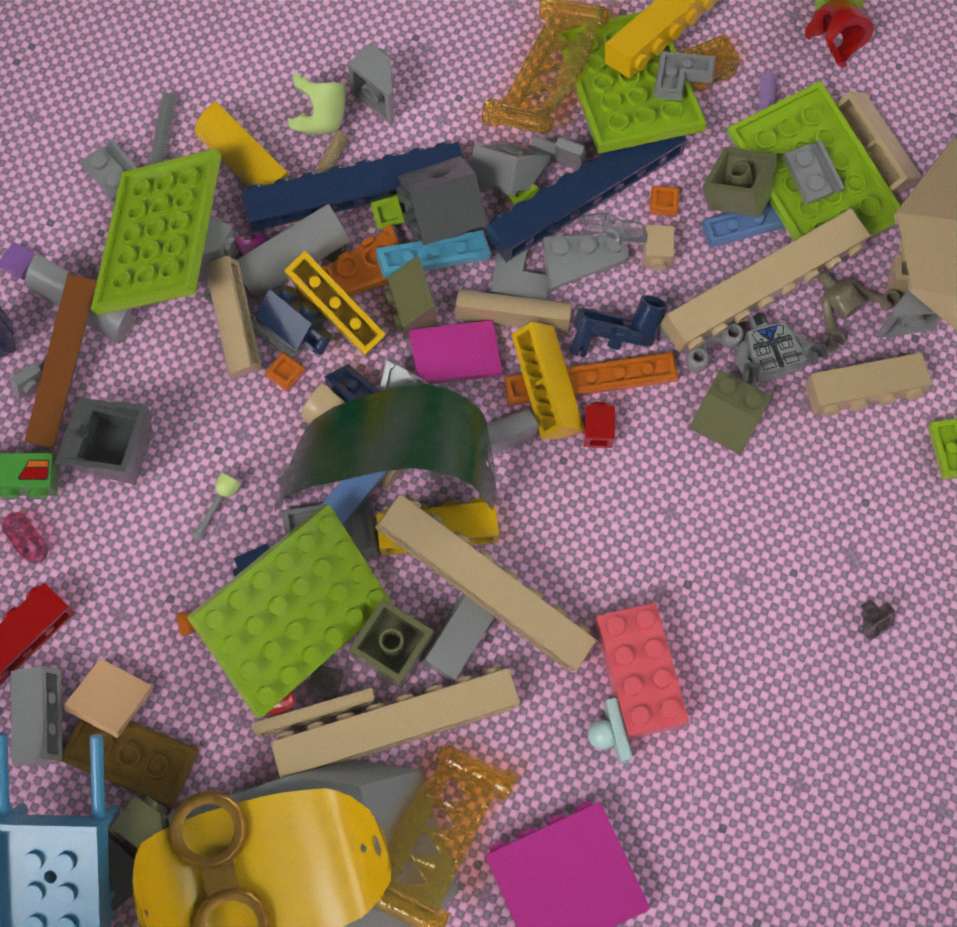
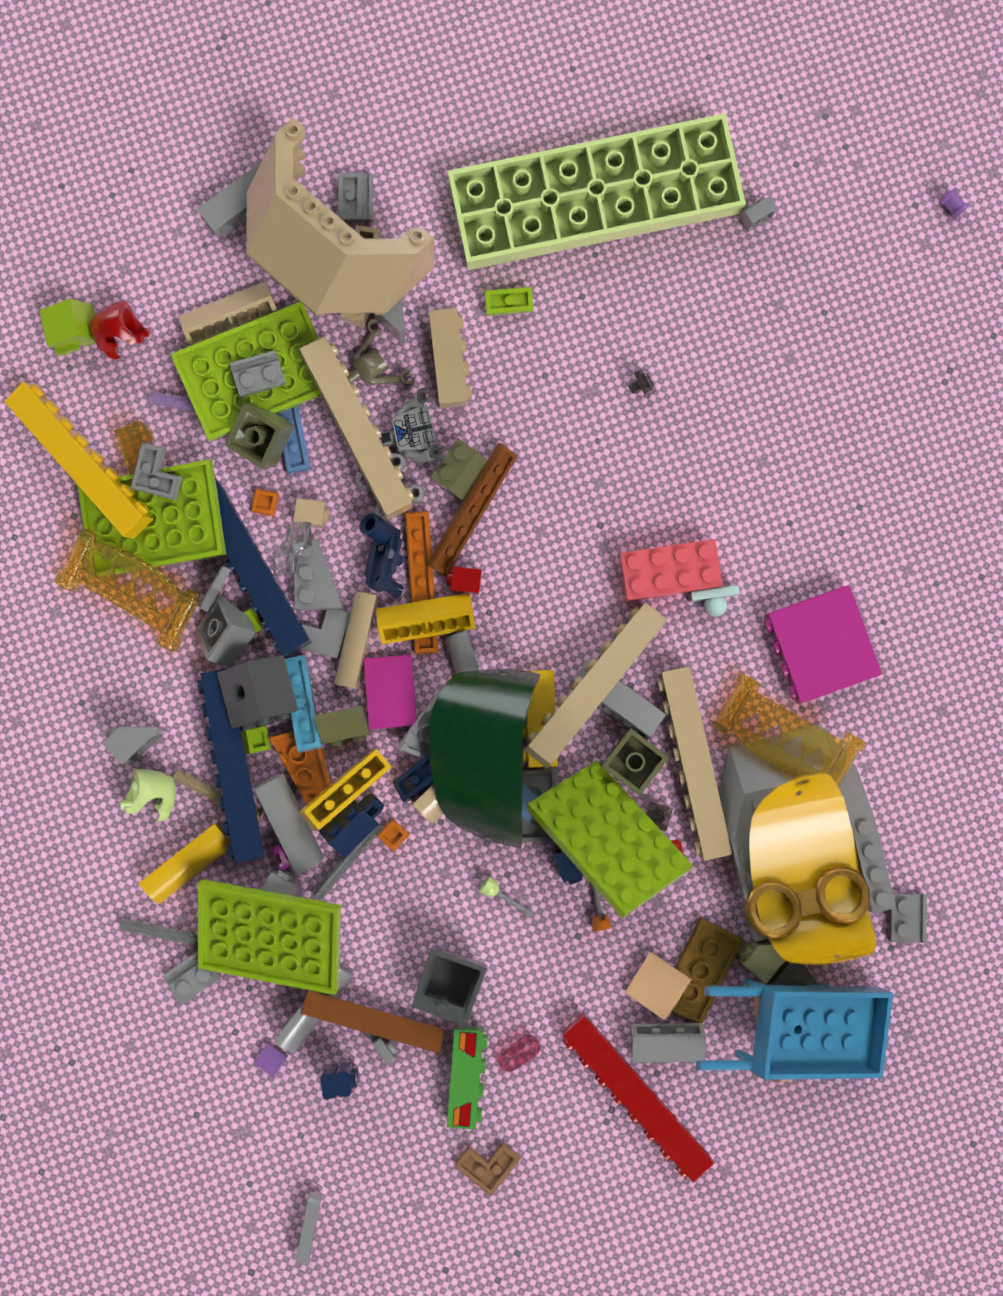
camera: 85 degrees left, 15 degrees up
(233, 317) = (346, 875): tan brick -> none
(314, 713) = (681, 822): tan tile -> none
(688, 426) = (472, 509): none -> dark orange tile

